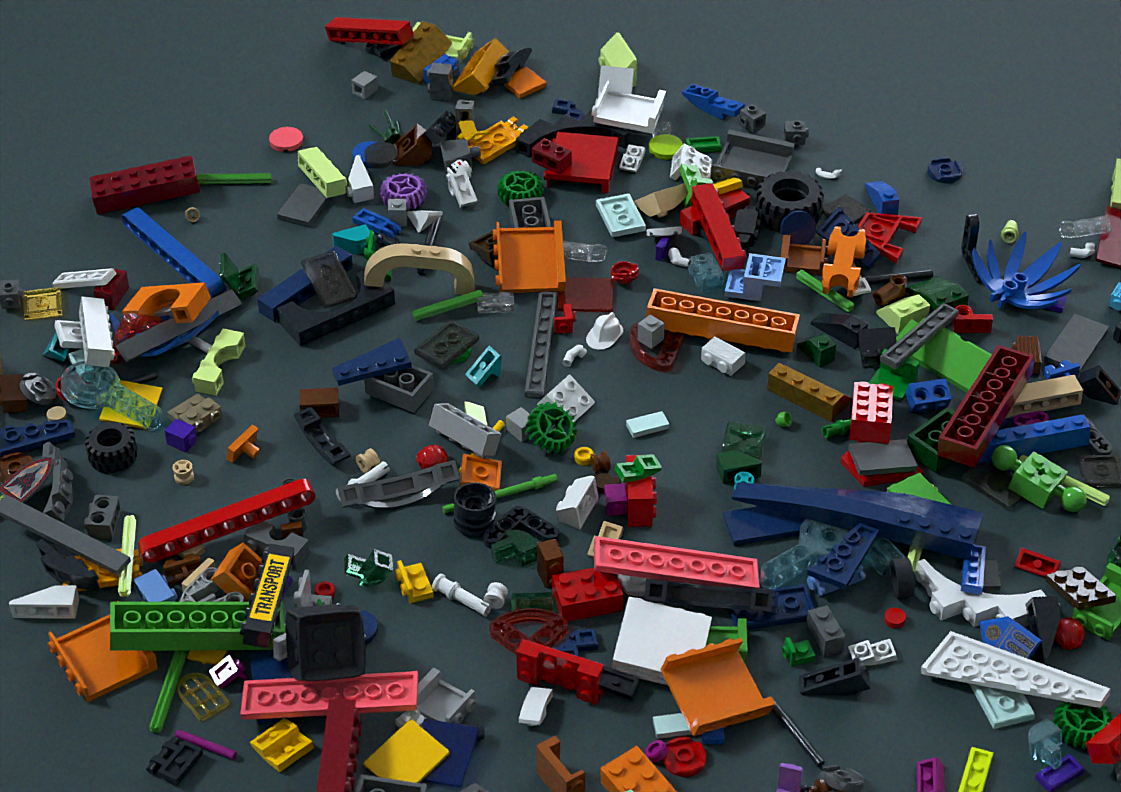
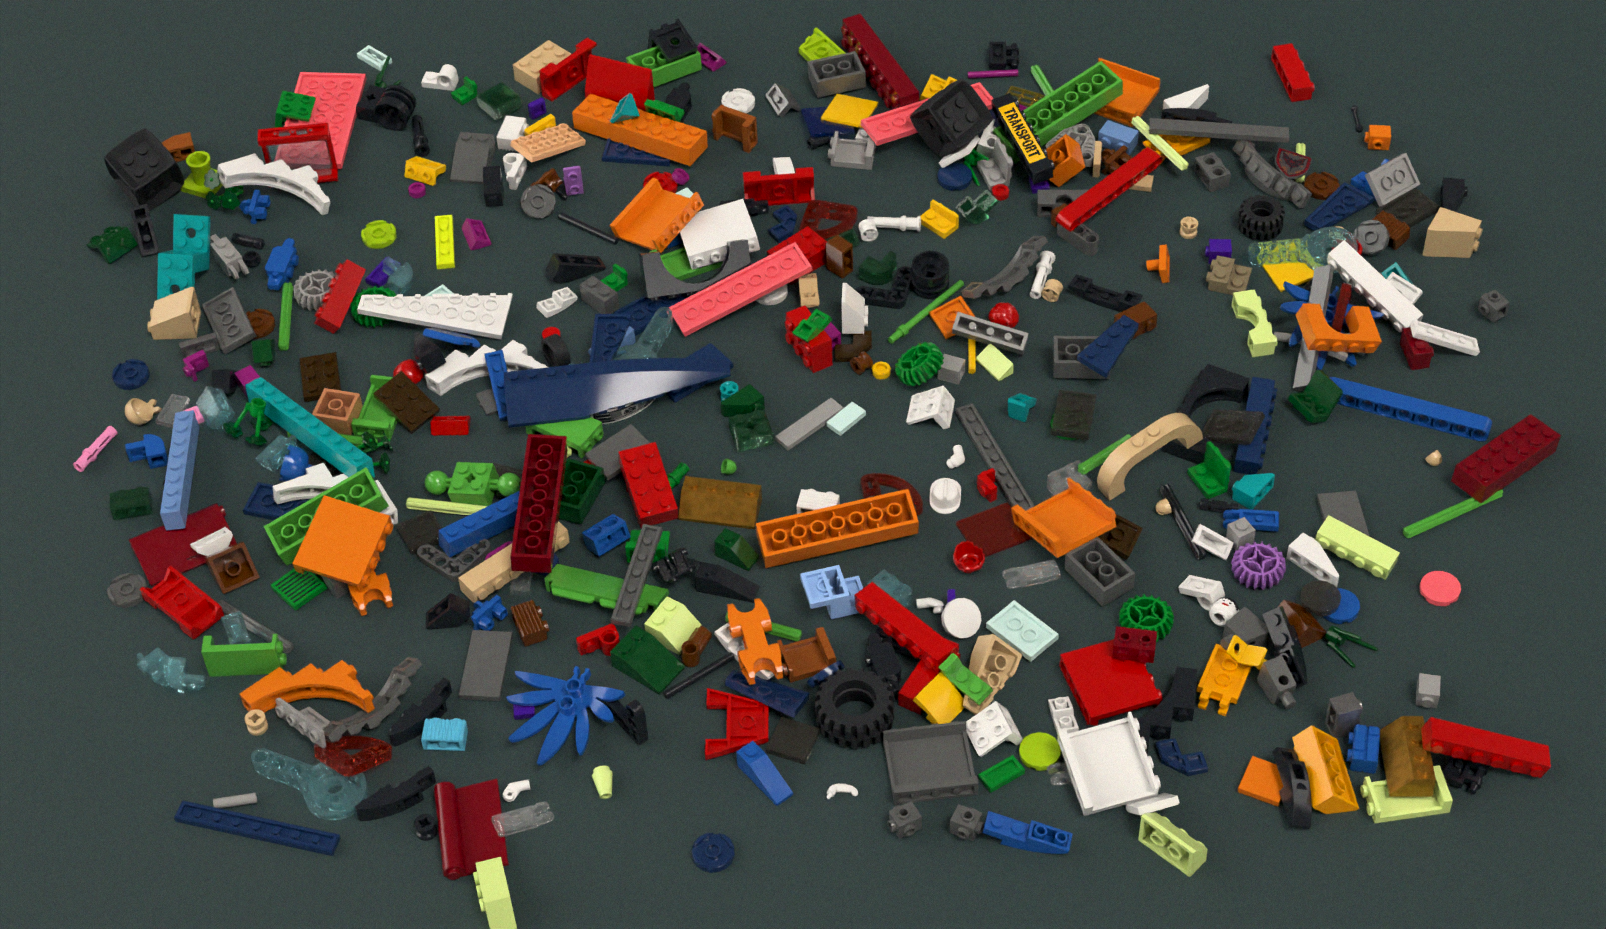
camera: 155 degrees right, 5 degrees up
(42, 303) = (1464, 320): clear yellow tile -> none
(651, 331) = (895, 482): light grey brick -> none
(684, 432) = (808, 424): none -> light grey tile

